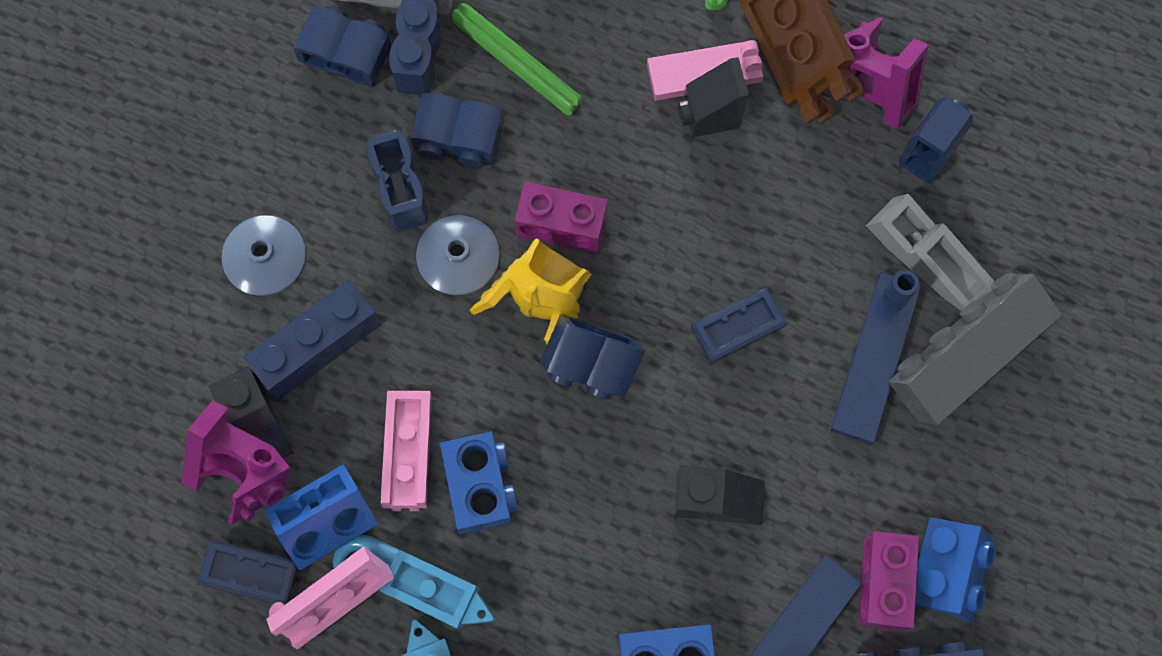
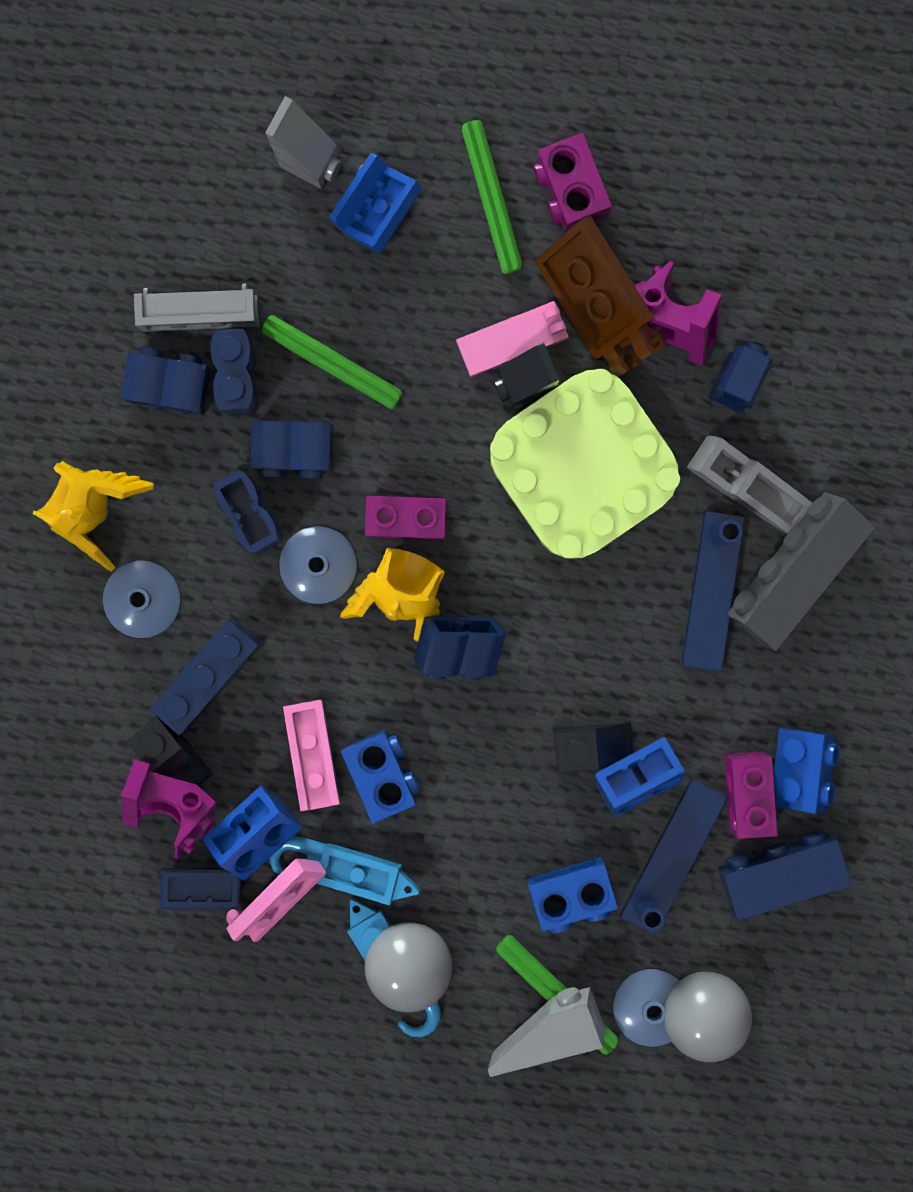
camera: 10 degrees left, 15 degrees up
(229, 144) = (82, 503): none -> yellow helmet
(738, 325) = (585, 586): dark blue plate -> none
(758, 200) = (584, 464): none -> yellowish green plate
(765, 536) = (639, 777): none -> blue brick

